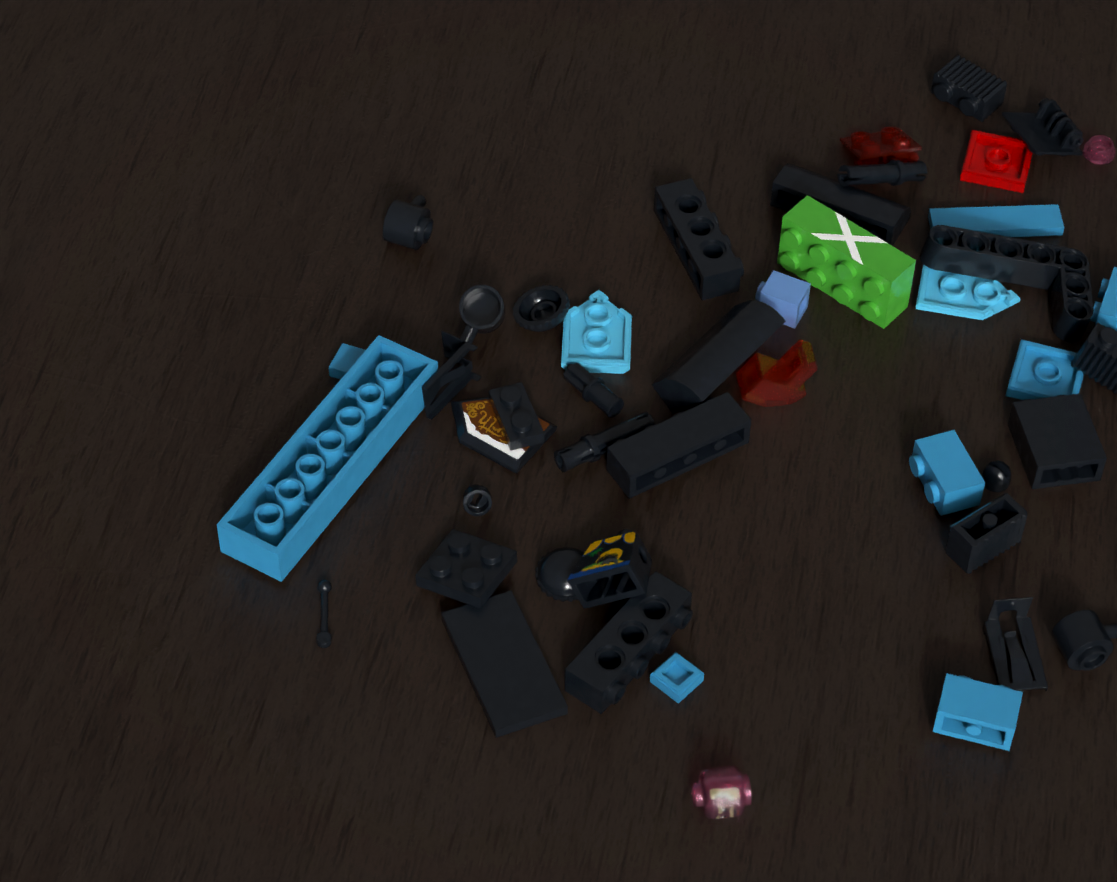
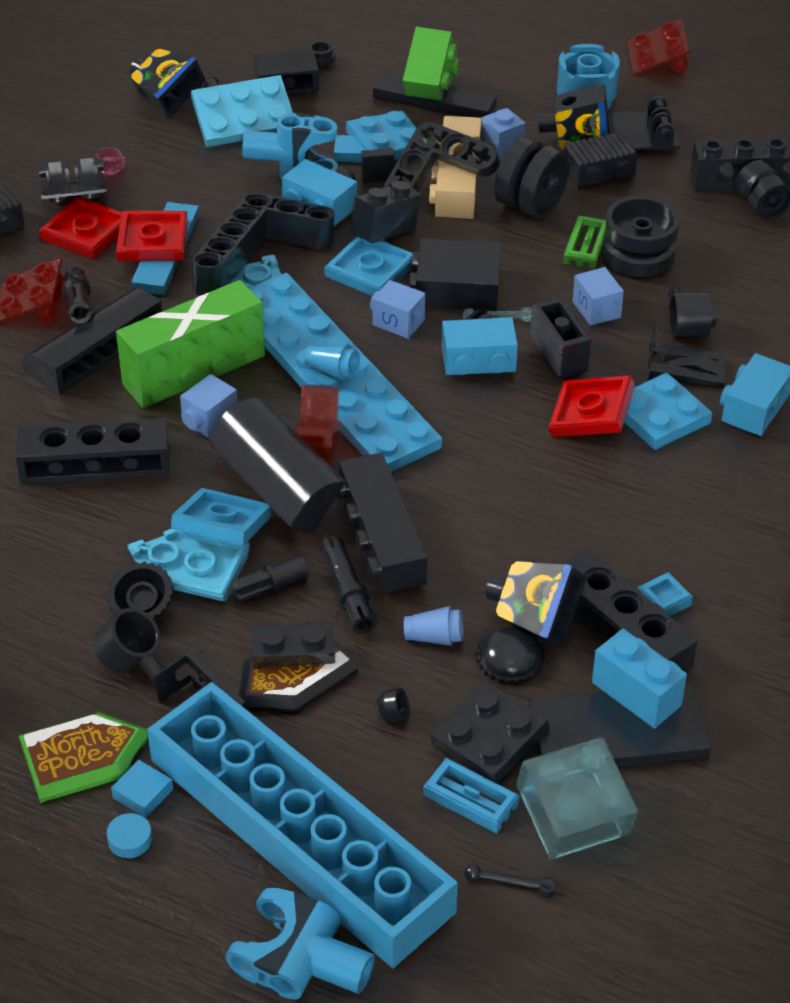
camera: 75 degrees left, 5 degrees down
(215, 487) = (301, 949): none -> dark azure connector
(304, 367) = (129, 835): none -> dark azure tile
(373, 312) = (80, 753): none -> tile
(393, 593) = (466, 799): none -> dark azure tile
(401, 632) = (576, 798): none -> clear light blue brick
(542, 653) = (639, 678): none -> dark azure brick
(574, 512) = (435, 626): none -> medium blue cone
(644, 336) = (221, 517): none -> dark azure plate
(860, 362) = (334, 360): none -> dark azure cone
(869, 377) = (370, 407): none -> dark azure plate
(905, 578) = (592, 406): none -> red tile
(934, 641) = (664, 411): none -> dark azure plate
(980, 404) = (398, 309): none -> medium blue brick
(996, 204) = (152, 236): none -> red tile
(1035, 511) = (524, 314): none -> clear light blue hinge
(1078, 559) = (597, 296): none -> medium blue brick

